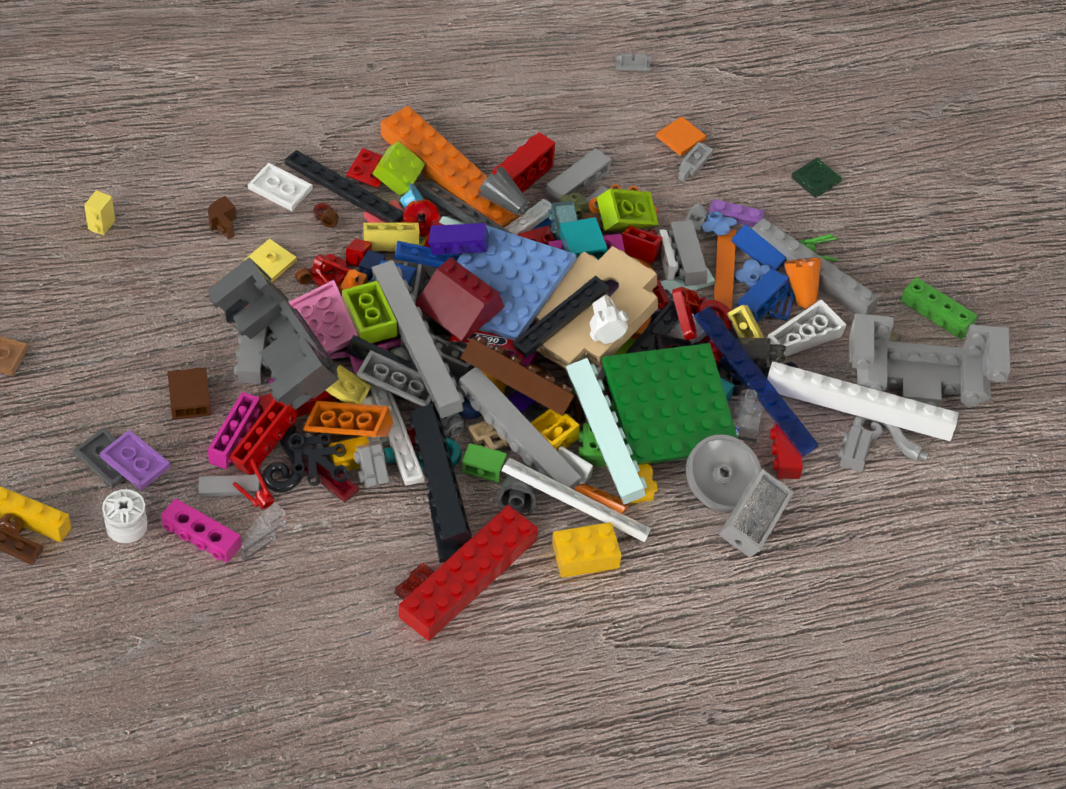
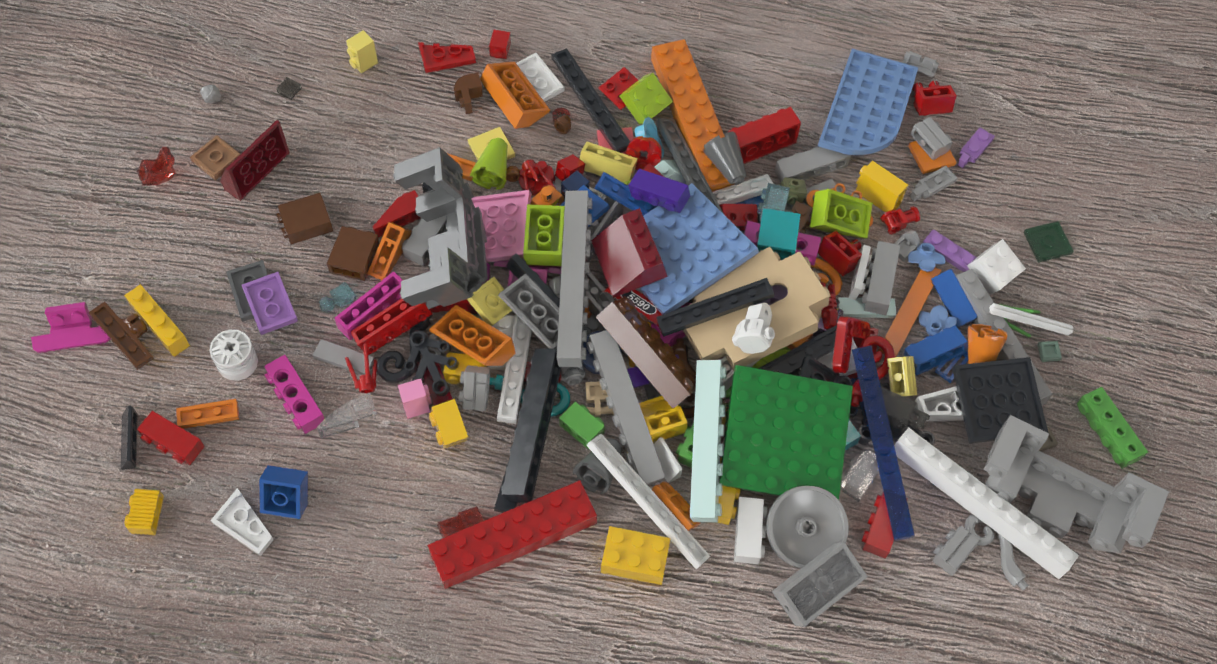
camera: 25 degrees right, 10 degrees up
(39, 270) = (289, 88): none -> clear smoke tile
(49, 344) = (255, 162): none -> dark red slope
(59, 624) = (129, 438): none -> black slope
(102, 608) = (170, 438): none -> red brick
(113, 677) = (144, 511): none -> yellow brick
(124, 378) = (304, 218): none -> reddish brown brick
(125, 576) = (207, 413): none -> orange plate
(182, 194) = (445, 57): none -> red wing
(196, 434) = (340, 295): none -> clear light blue plate
(210, 654) = (242, 523): none -> white wing
(218, 341) = (400, 212): none -> red slope
(223, 379) = (388, 251): none -> orange slope
(230, 165) = (500, 44): none -> red brick
(241, 610) = (283, 492): none -> blue brick
(268, 205) = (514, 94): none -> orange slope
(285, 271) = (491, 166): none -> lime cone
(319, 492) = (415, 398): none -> bright pink brick
(364, 500) = (448, 423): none -> yellow brick
(604, 110) = (868, 104): none -> medium blue plate
(651, 176) = (881, 187): none -> yellow brick
(660, 88) = (933, 99): none -> red brick
(675, 121) = (931, 138): none -> light grey brick
(675, 495) = (750, 530): none -> white brick
(678, 200) = (898, 220): none -> red connector
(715, 118) = (975, 147): none -> medium lavender hinge
(783, 209) = (996, 267): none -> white brick
(829, 311) = (994, 392): none -> black plate
(830, 242) = (1031, 319): none -> white axle
(859, 266) = (1049, 351): none -> sand green tile

